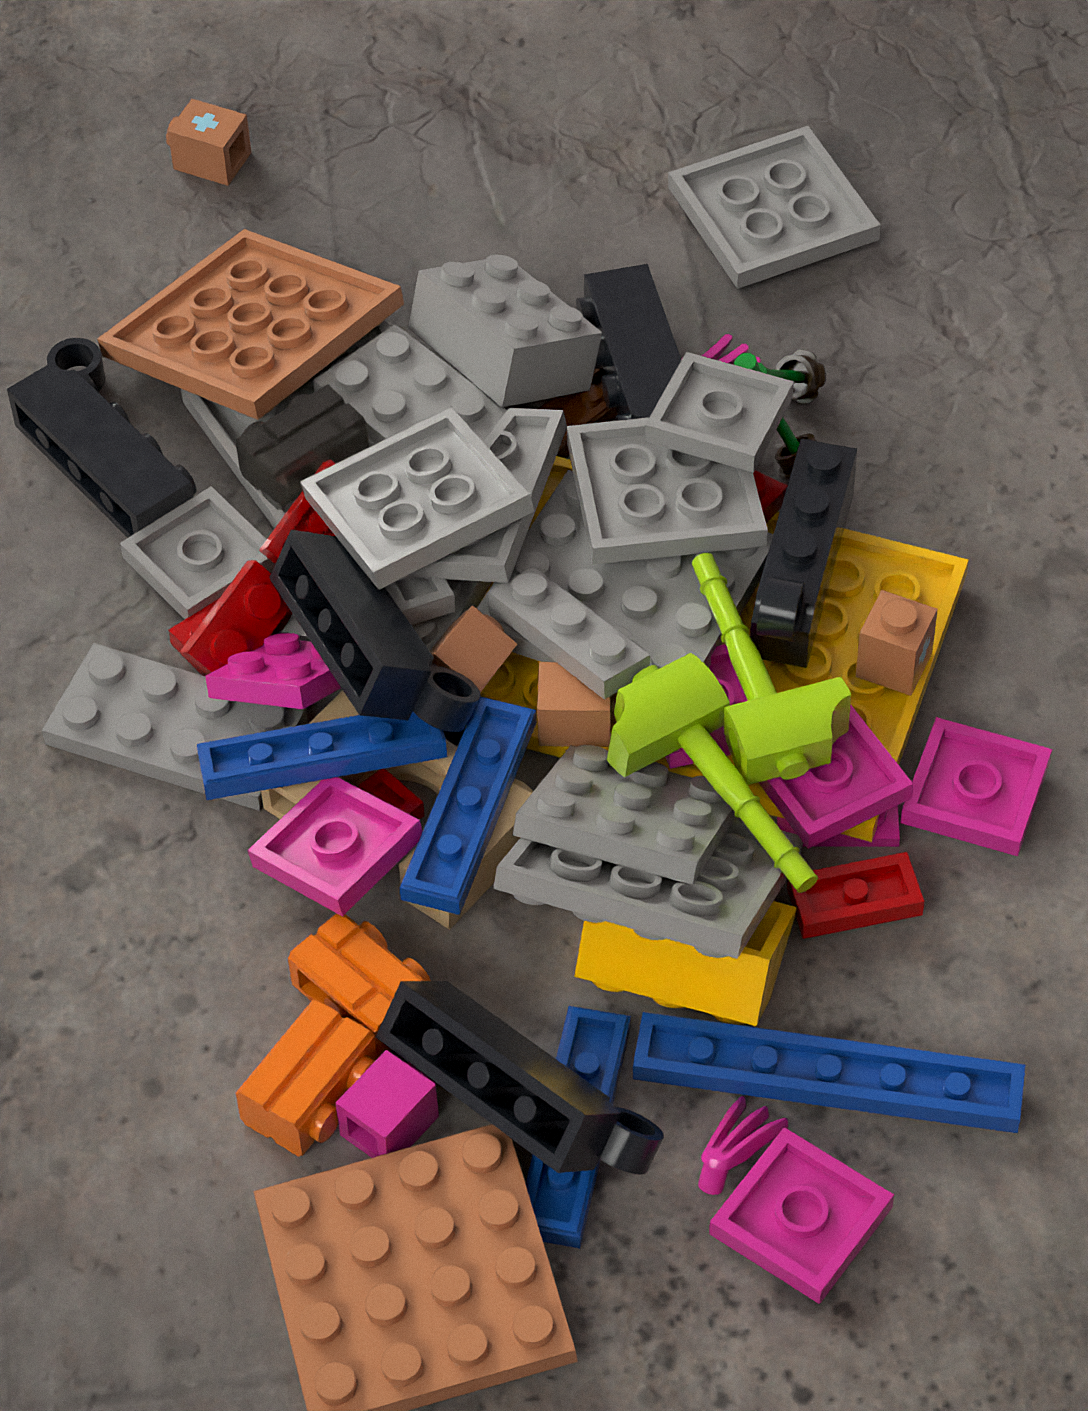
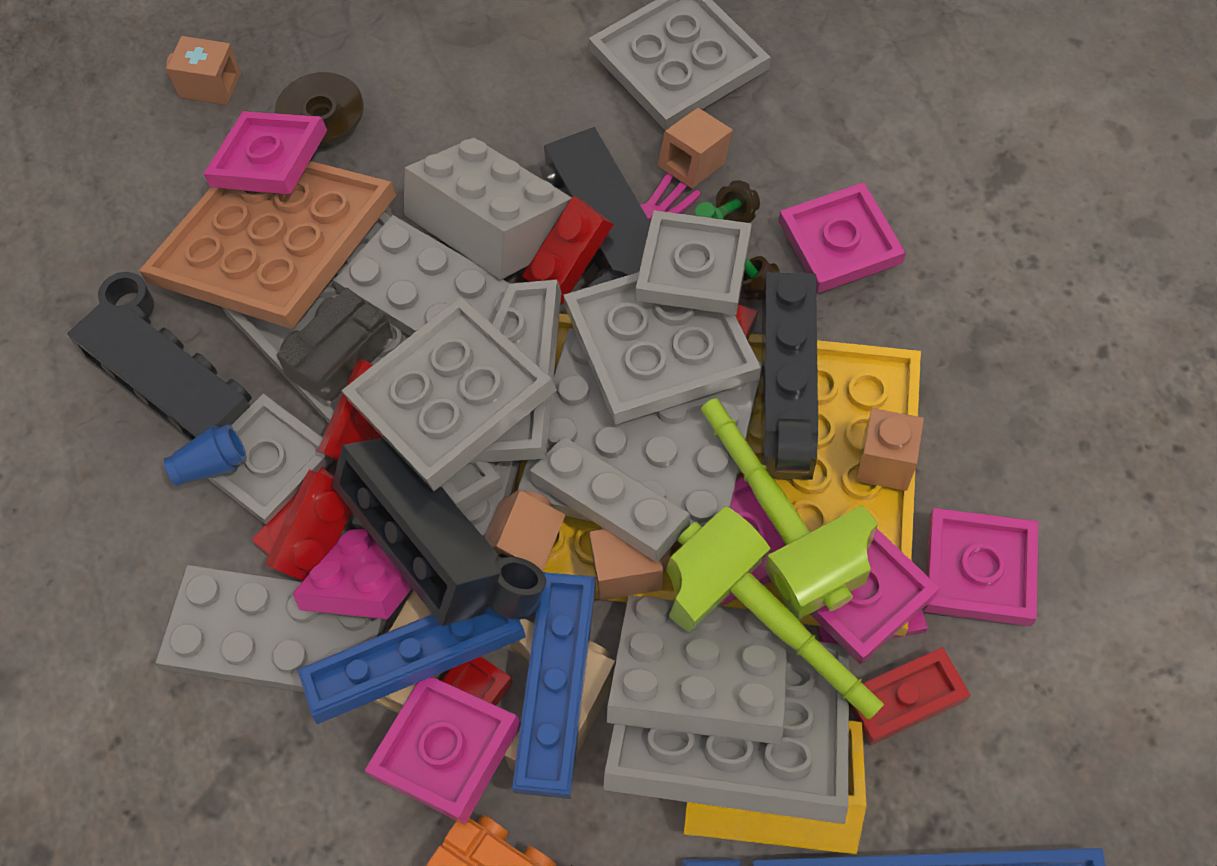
camera: 10 degrees left, 10 degrees up
(137, 533) = (206, 456): none -> blue cone
(264, 236) = (265, 152): none -> dark pink plate
(335, 202) = (324, 96): none -> dark brown dish
(590, 381) = (569, 246): none -> red plate
(763, 308) = (694, 147): none -> nougat brick
(912, 431) = (841, 237): none -> dark pink plate

